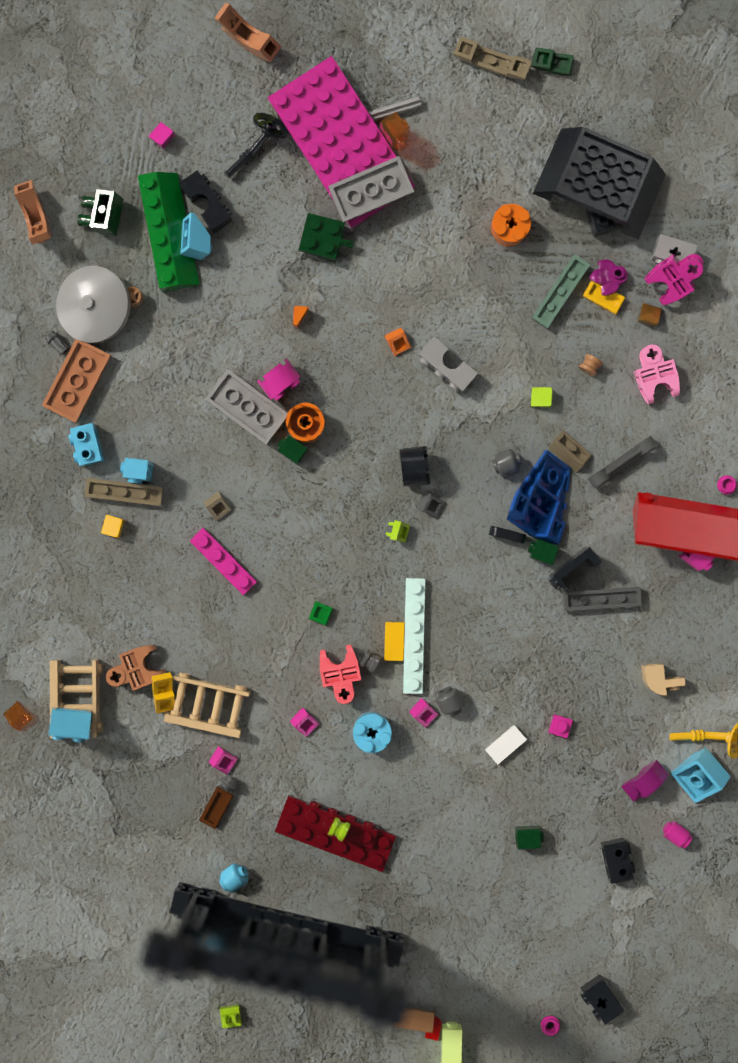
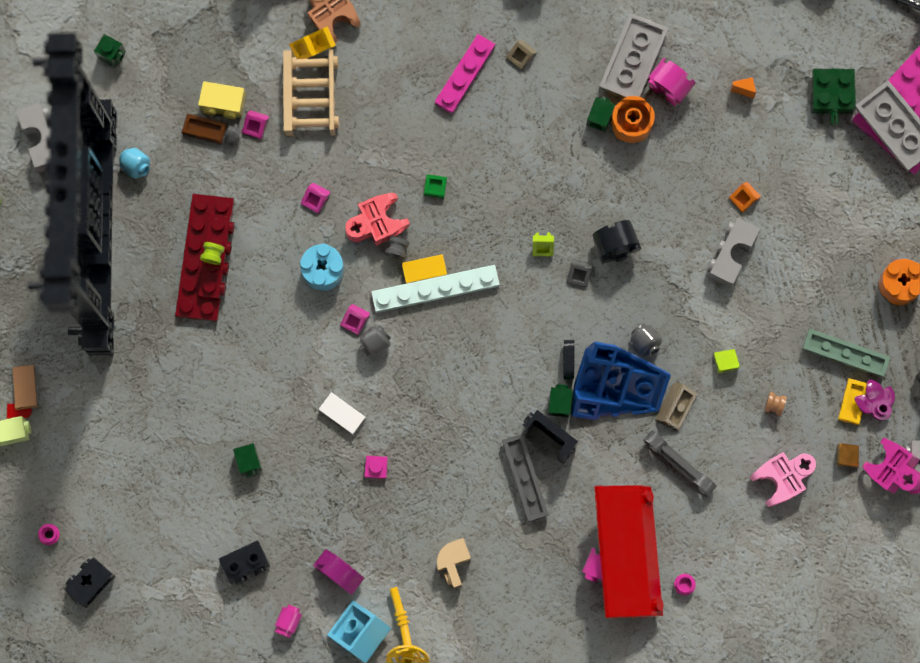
camera: 75 degrees right, 10 degrees down
(123, 877) = (110, 51): none -> dark green brick
(194, 785) = (222, 100): none -> light yellow brick

